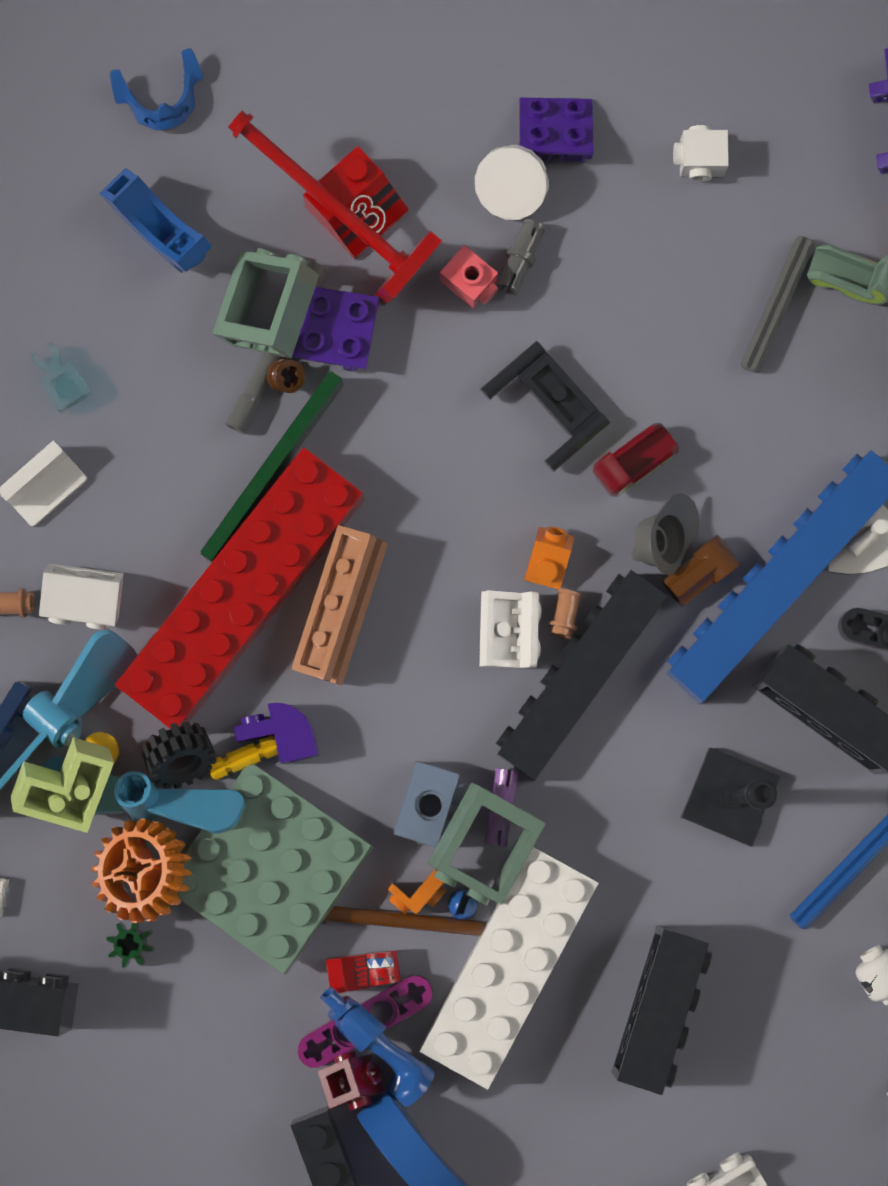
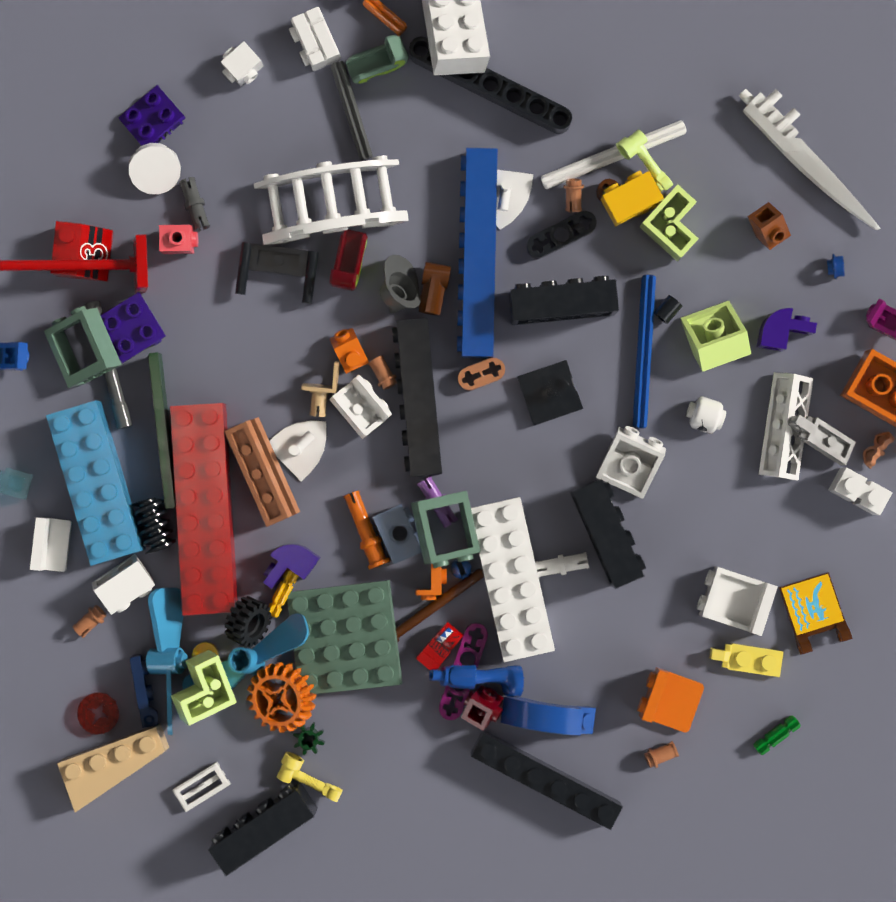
camera: 45 degrees left, 5 degrees up
(79, 961) = (291, 770): none -> light yellow brick
(150, 460) = (95, 482): none -> dark azure brick
(171, 559) = (153, 524): none -> black piece
(277, 381) = (125, 382): reddish brown bush -> none
(388, 787) = (370, 542): none -> orange pin
(405, 616) = (300, 446): none -> white shield
(477, 576) = (320, 392): none -> tan bracket
(579, 1000) = (562, 564): none -> white pin
(656, 403) = (333, 221): none -> white fence
(669, 719) = (478, 368): none -> nougat beam
(756, 953) = (631, 461): none -> white plate
(805, 195) = (315, 39): none -> white brick

